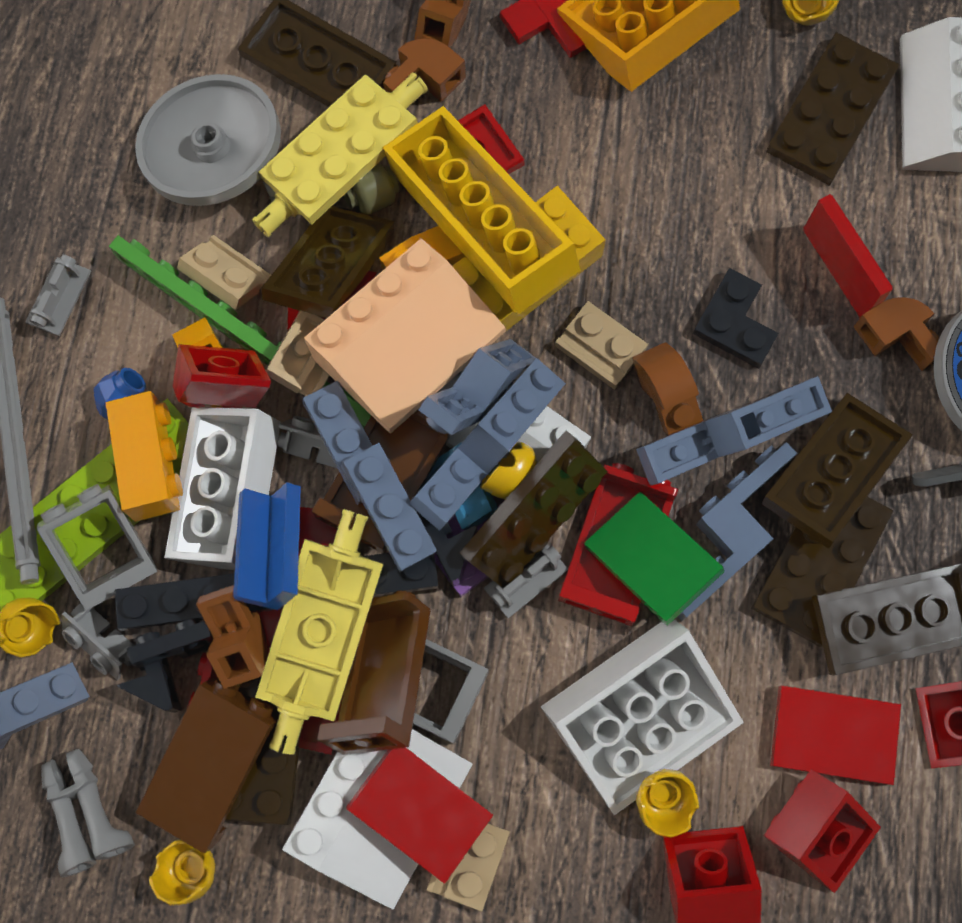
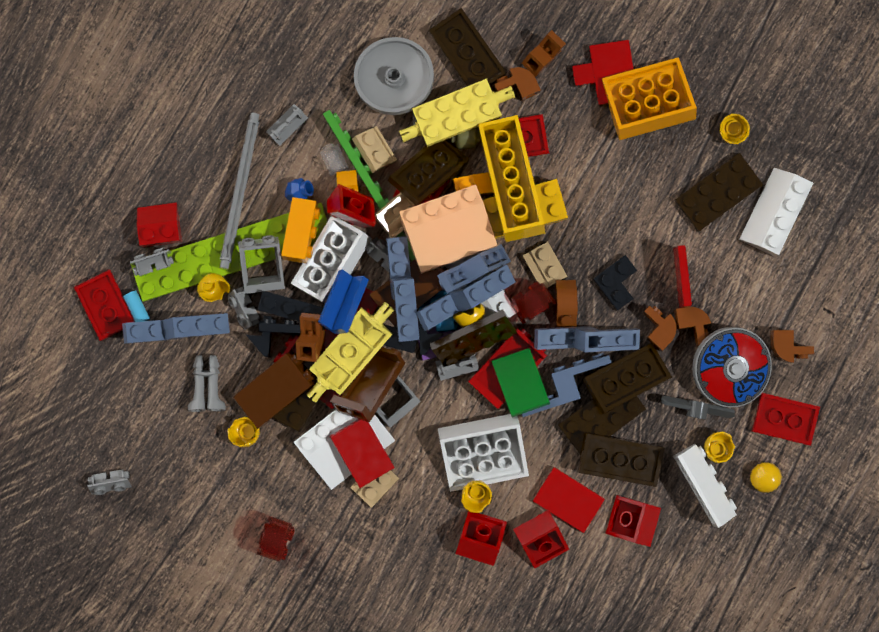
camera: 20 degrees right, 10 degrees up
(159, 316) = (333, 159): none -> clear brick
(610, 407) = (532, 302): none -> clear red brick
(857, 358) = (665, 329): none -> dark orange brick

